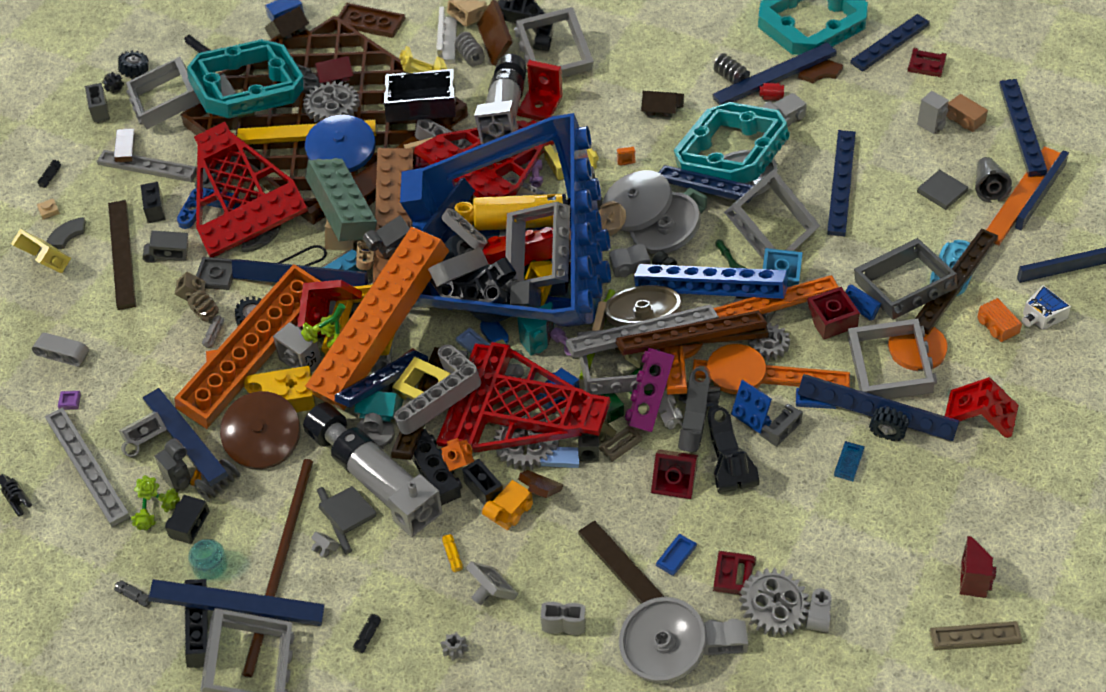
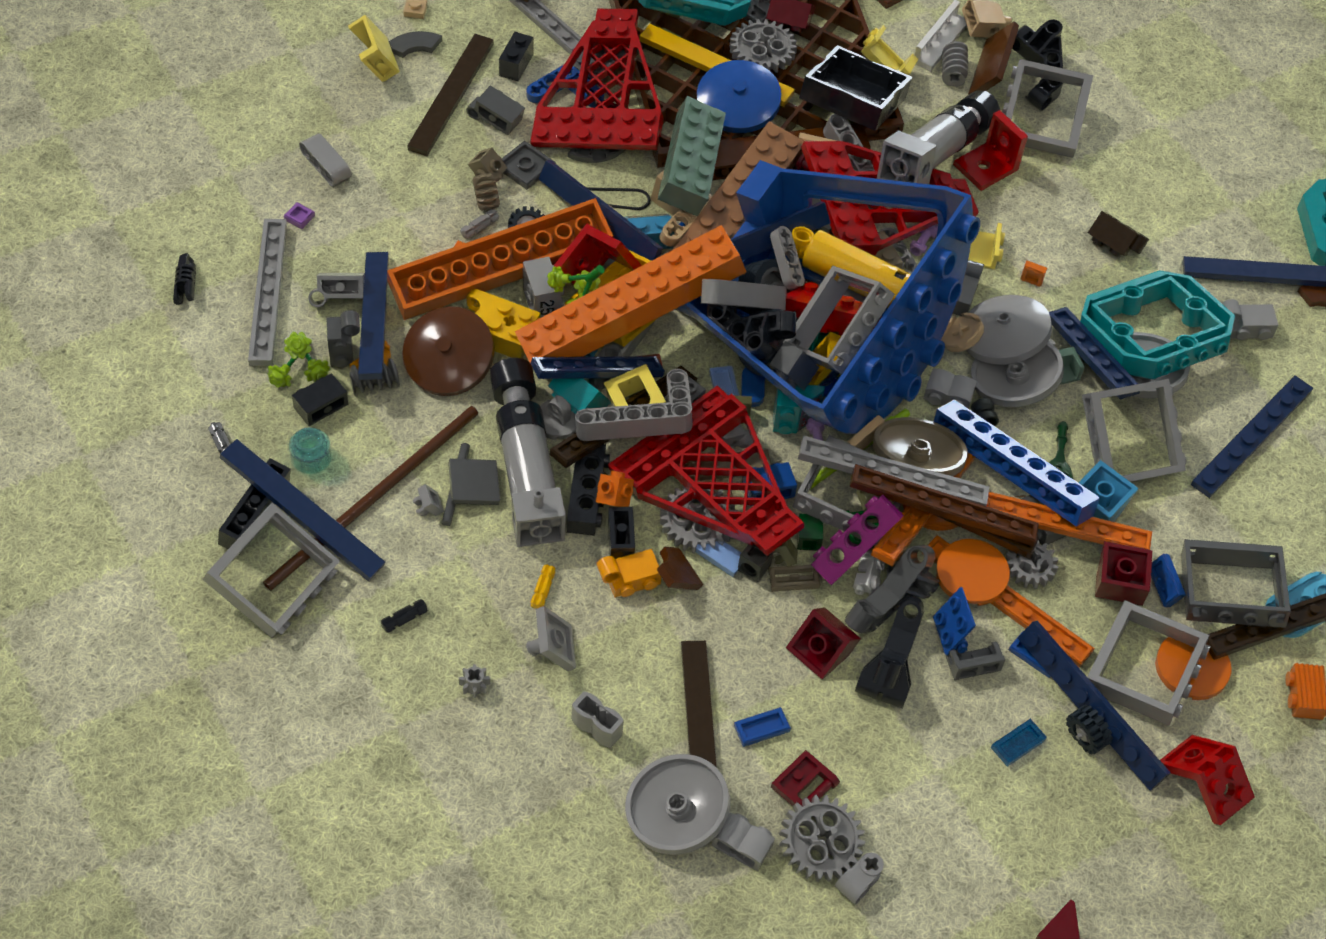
camera: 25 degrees right, 5 degrees up
(387, 237) = (704, 220): dark grey hinge -> none
(730, 69) = (1224, 239): flat silver piece -> none
(772, 91) = (1252, 290): red brick -> none

